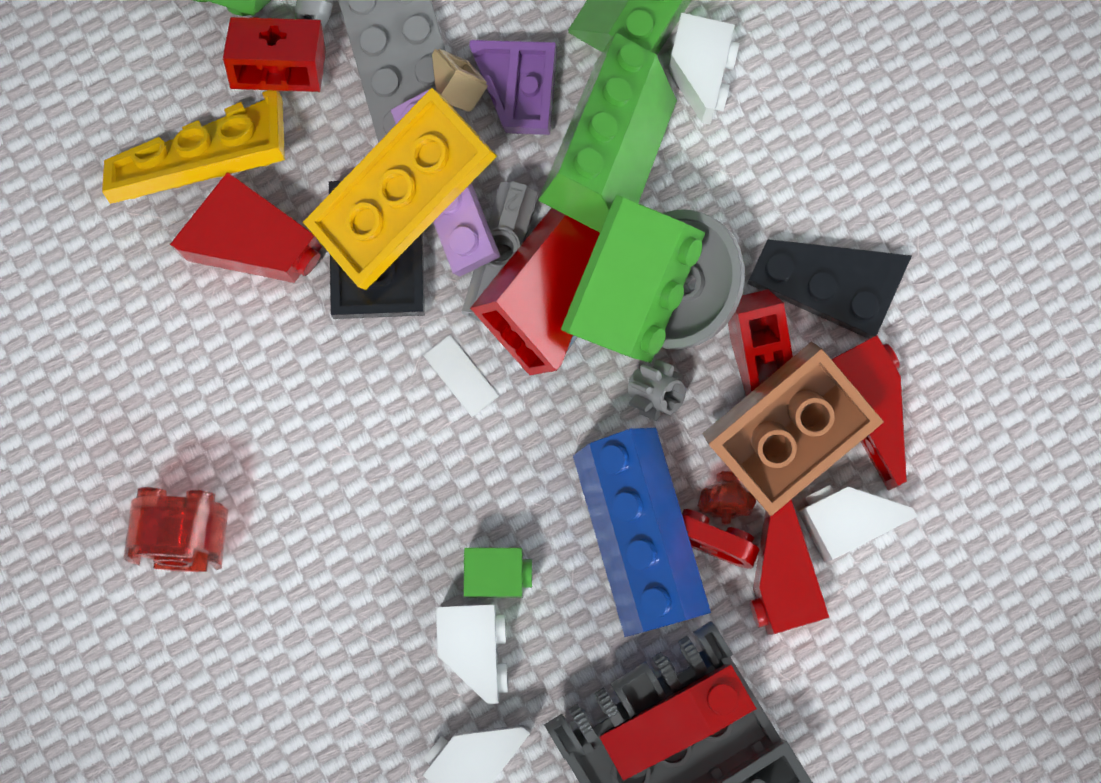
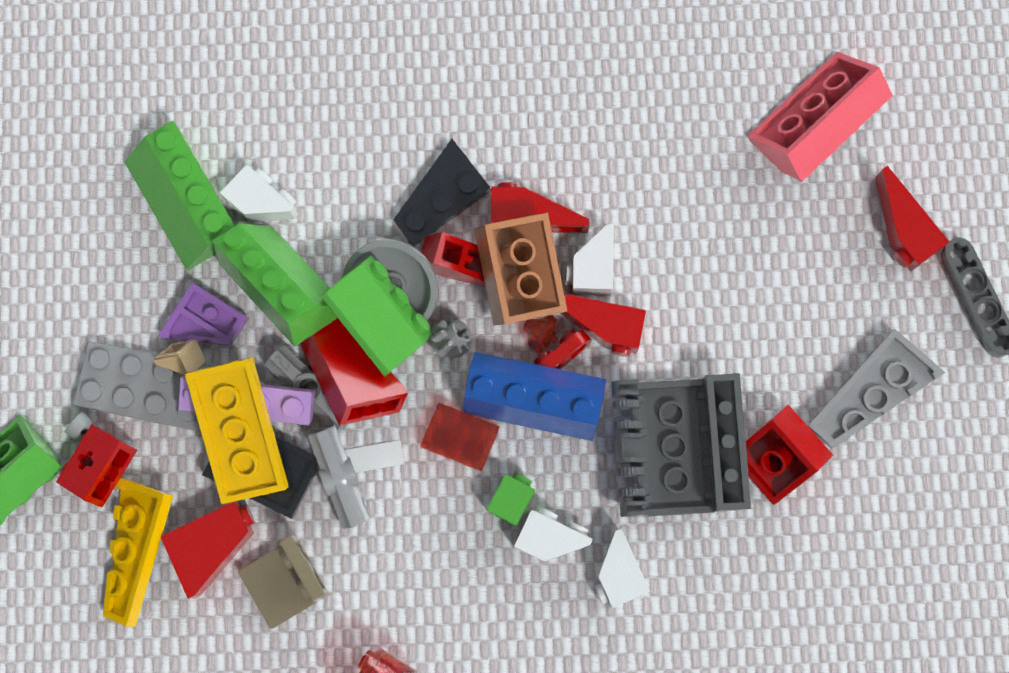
camera: 60 degrees left, 0 degrees up
(251, 349) = (283, 582): none -> dark tan bracket
(410, 343) = (338, 476): none -> light grey piece
(540, 467) = (460, 437): none -> clear red plate
(678, 721) = (660, 434): red slope -> none

